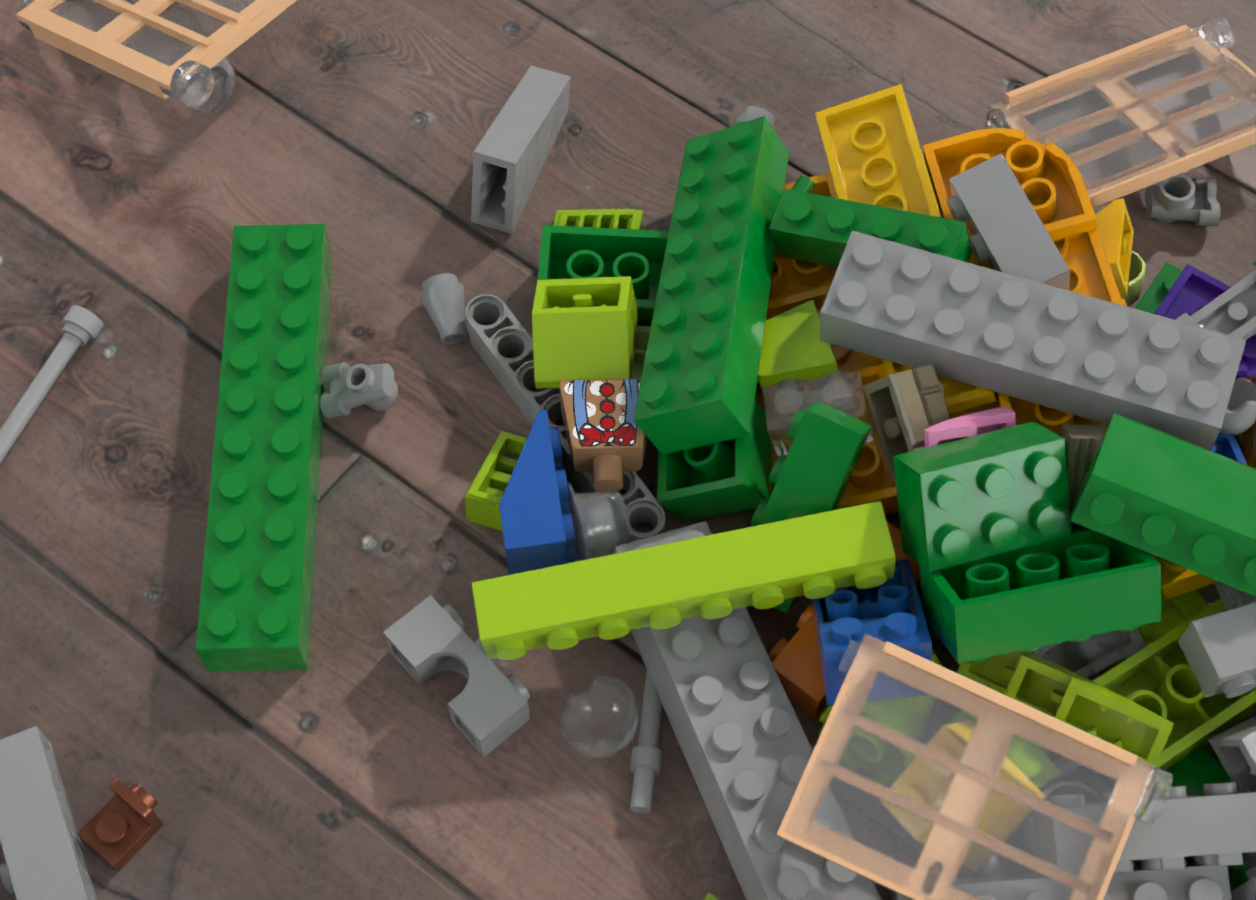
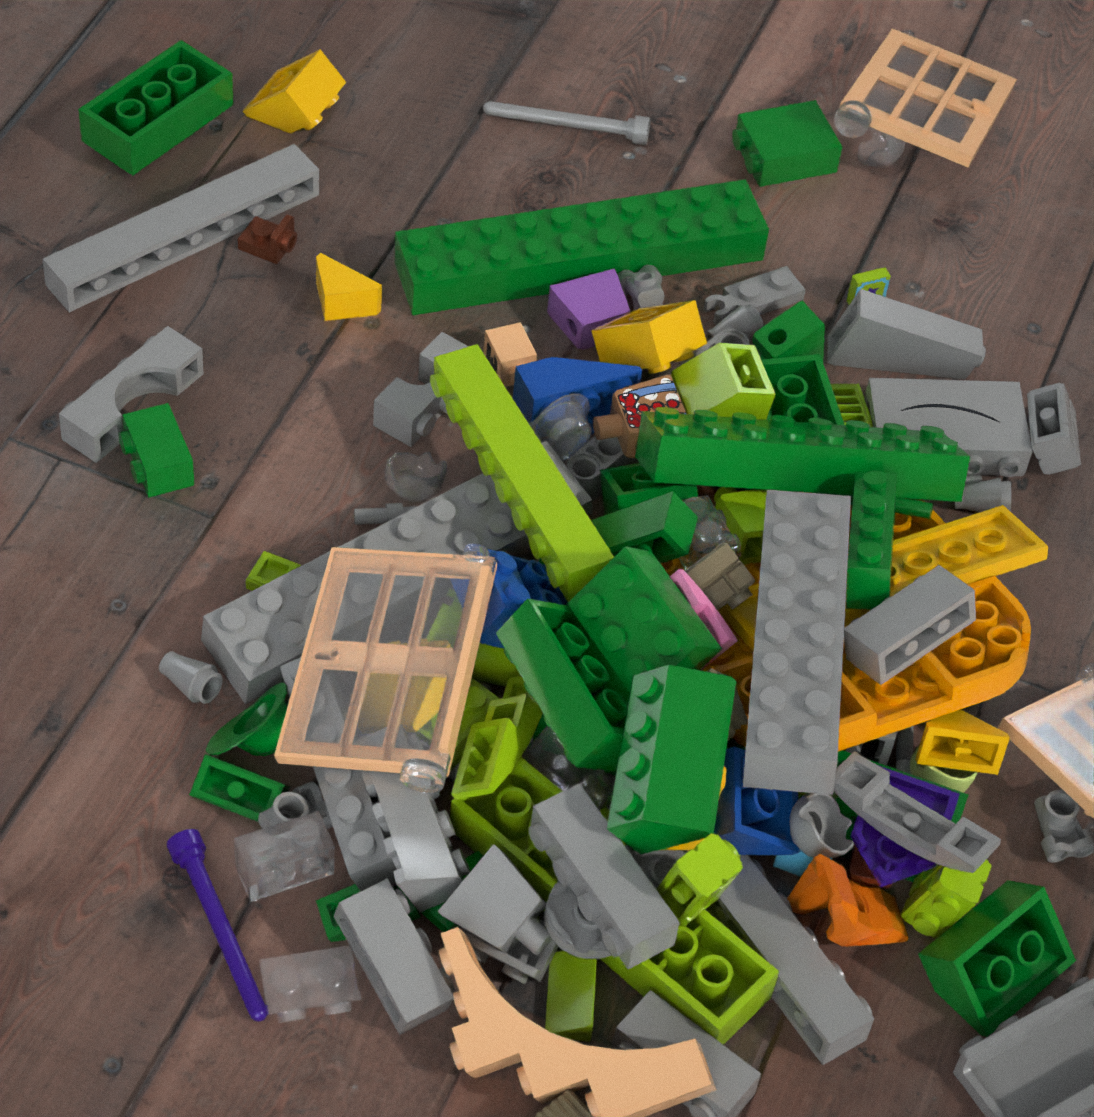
camera: 70 degrees right, 10 degrees down
(164, 173) = (787, 143): none -> green brick
(255, 746) = (345, 291): none -> yellow slope
(380, 452) = (586, 304): none -> medium lavender torso
(393, 274) = (763, 292): none -> light grey plate
(423, 158) = (872, 281): none -> lime tile
(428, 563) = (506, 349): none -> light nougat brick
(469, 394) = (651, 336): none -> yellow brick
(506, 258) = (791, 334): none -> green torso
(643, 134) = (979, 415): none -> light grey panel
(682, 46) = (1053, 428): none -> light grey brick

